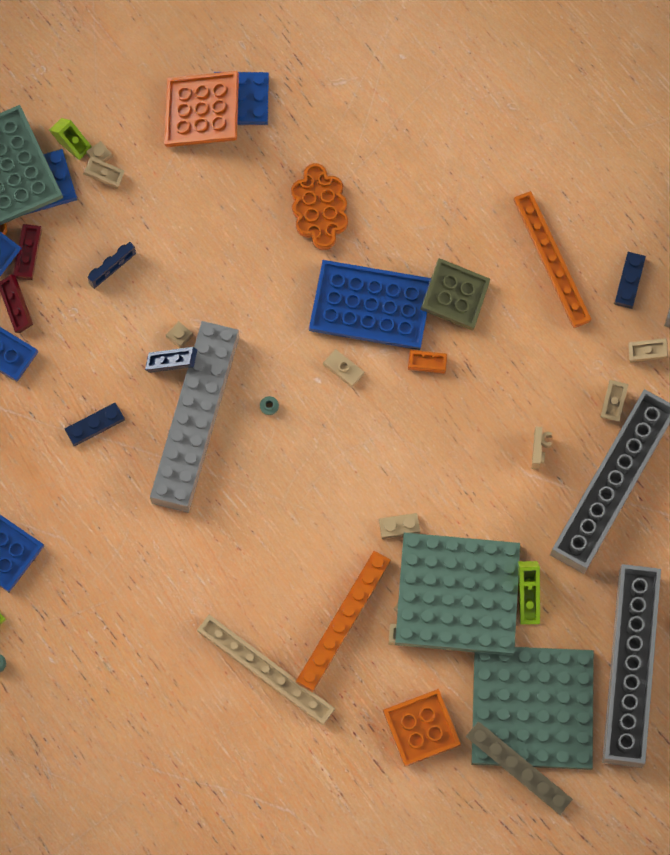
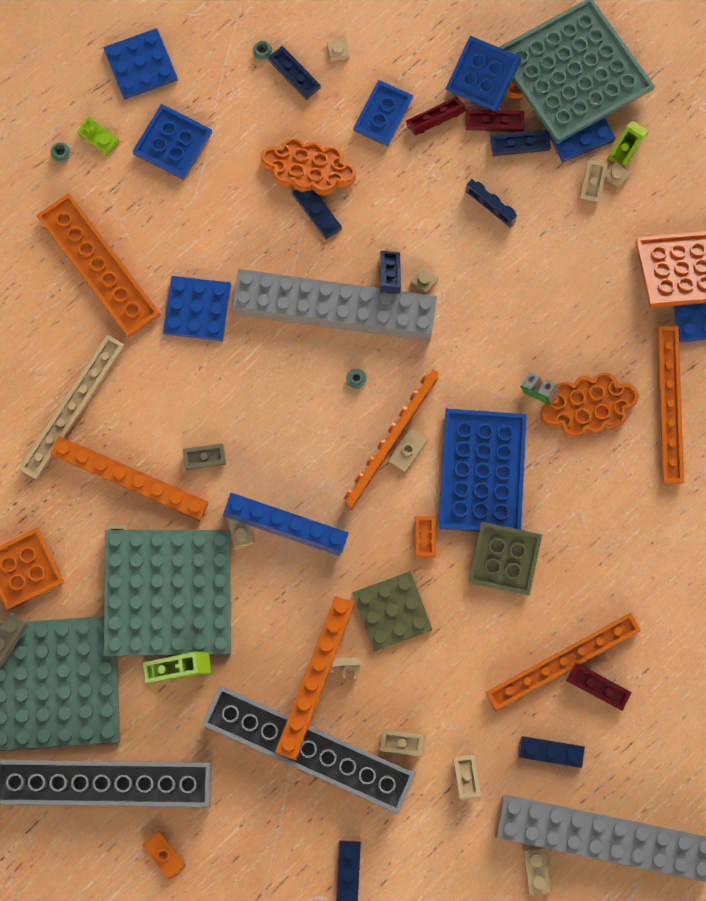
camera: 80 degrees right, 5 degrees up
(49, 426) = (308, 166): none -> orange plate
(54, 232) = (520, 143): none -> dark blue plate
(122, 634) = (98, 265): none -> orange plate
(179, 545) = (197, 308): none -> blue plate
(298, 253) = (546, 393): none -> flat silver piece
(326, 138) = (670, 405): none -> orange plate
(329, 550) = (204, 456): none -> dark tan plate
(337, 384) = (386, 445): none -> orange plate
(405, 480) = (285, 524): none -> blue brick
(492, 398) = (392, 611): none -> olive plate
(551, 465) = (315, 678): none -> orange plate
(577, 232) = (598, 686): none -> dark red plate

